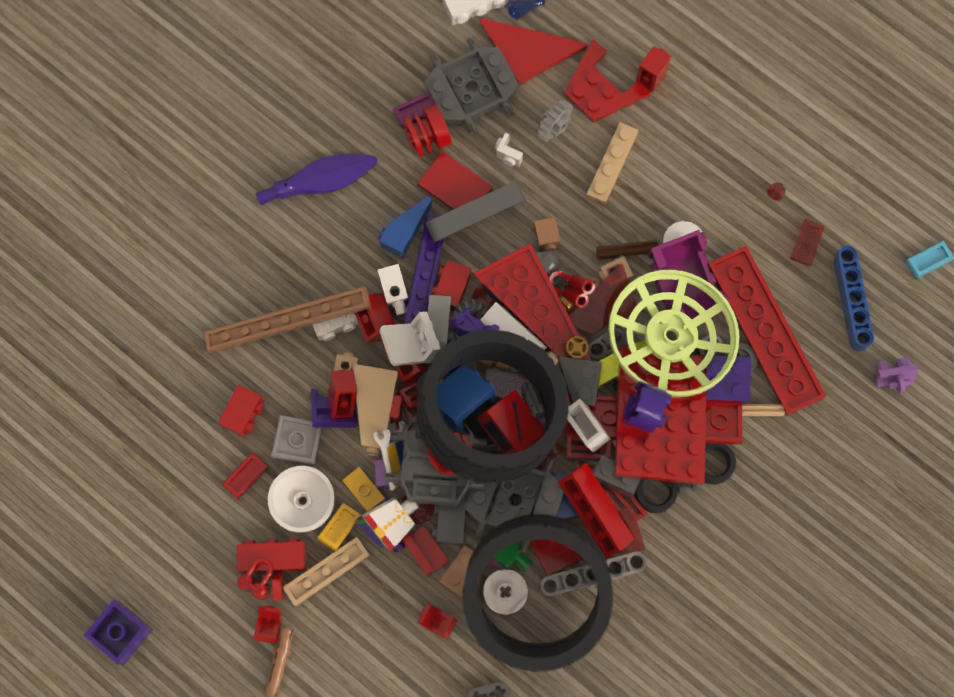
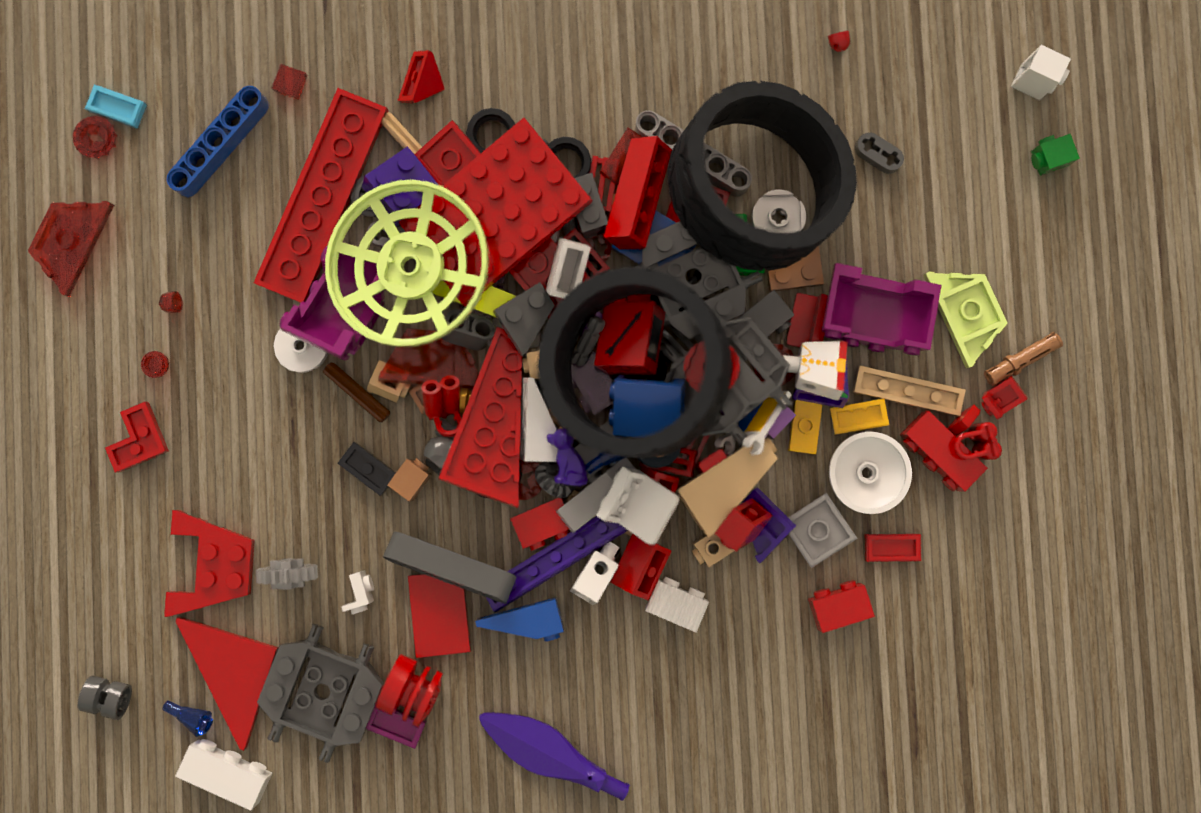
camera: 135 degrees left, 10 degrees up
(118, 632) = (1137, 523): dark purple brick -> none
(287, 319) = (718, 646): medium nougat tile -> none
(339, 655) = (968, 312): none -> yellowish green wing
(391, 593) = (880, 311): none -> magenta cylinder
(437, 621) = (860, 250): red bracket -> none
(576, 216) = (367, 468): none -> black plate
(579, 345) = (500, 340): pearl gold wheel -> none
(612, 163) = (280, 483): tan plate -> none
(646, 407) = (505, 220): dark purple brick -> none
(653, 68) = (144, 526): red brick -> none
(706, 111) = (144, 440): none -> red plate
(747, 152) = (154, 364): none -> clear red plate
(788, 452) = (421, 78): none -> red slope
(807, 242) = (198, 230): clear red plate -> none
(857, 373) = (289, 81): none -> clear red tile
(867, 165) = (68, 239): none -> clear red wing
(896, 377) = (250, 38): medium lavender hips -> none
(920, 222) = (93, 125): none -> clear red gear

